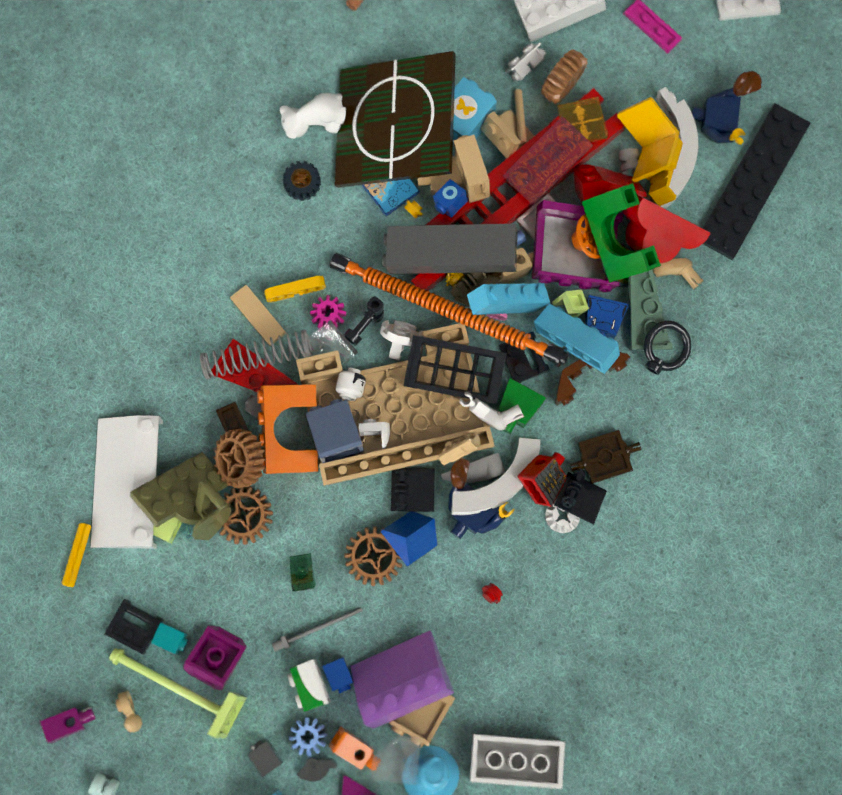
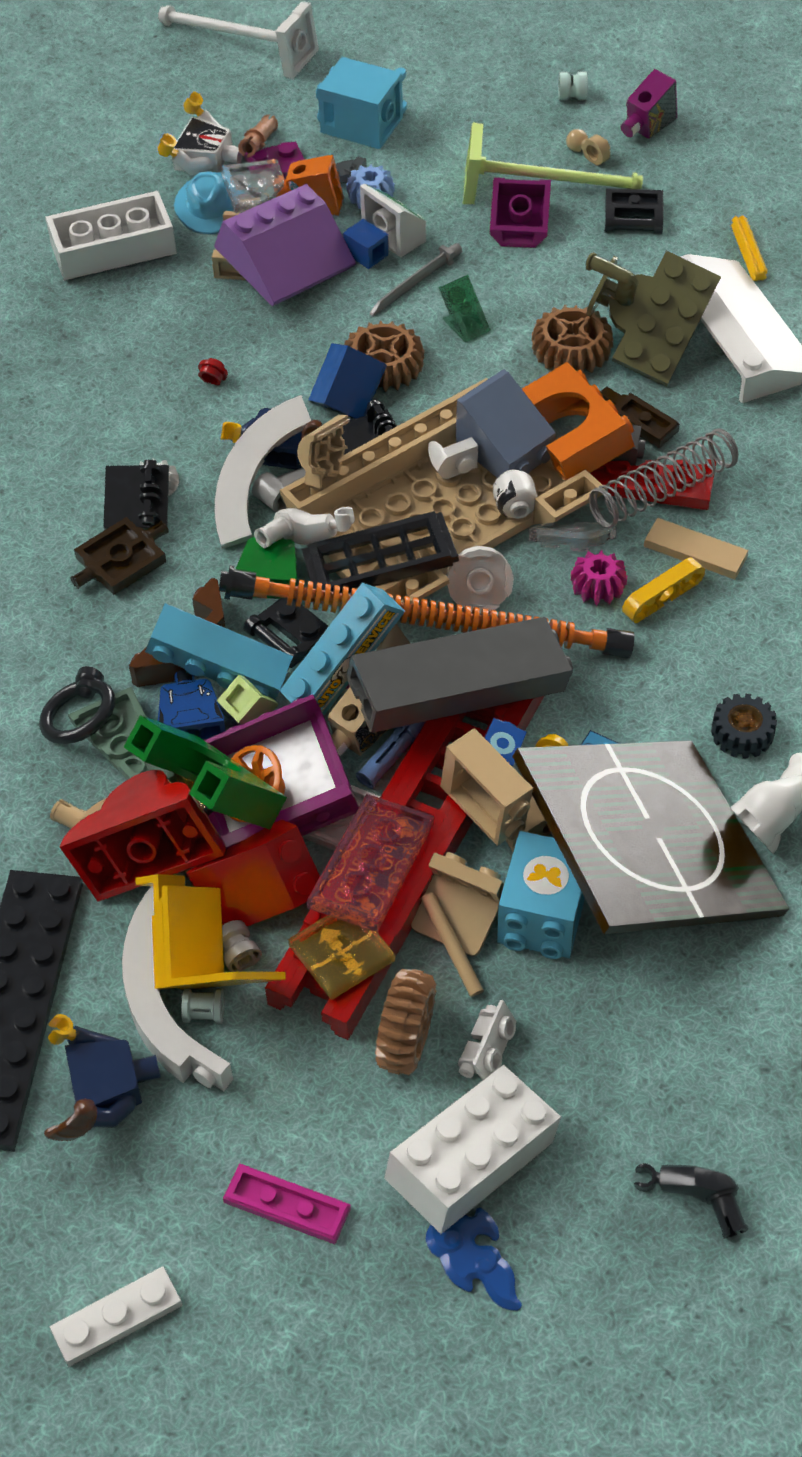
camera: 160 degrees right, 25 degrees down
(170, 639) = (584, 211): teal brick -> none
(239, 458) = (611, 366): medium nougat gear -> none
(264, 757) = (409, 156): dark grey brick -> none
(374, 315) = (533, 575): black bar -> none
(544, 478) = (196, 489): torso -> none

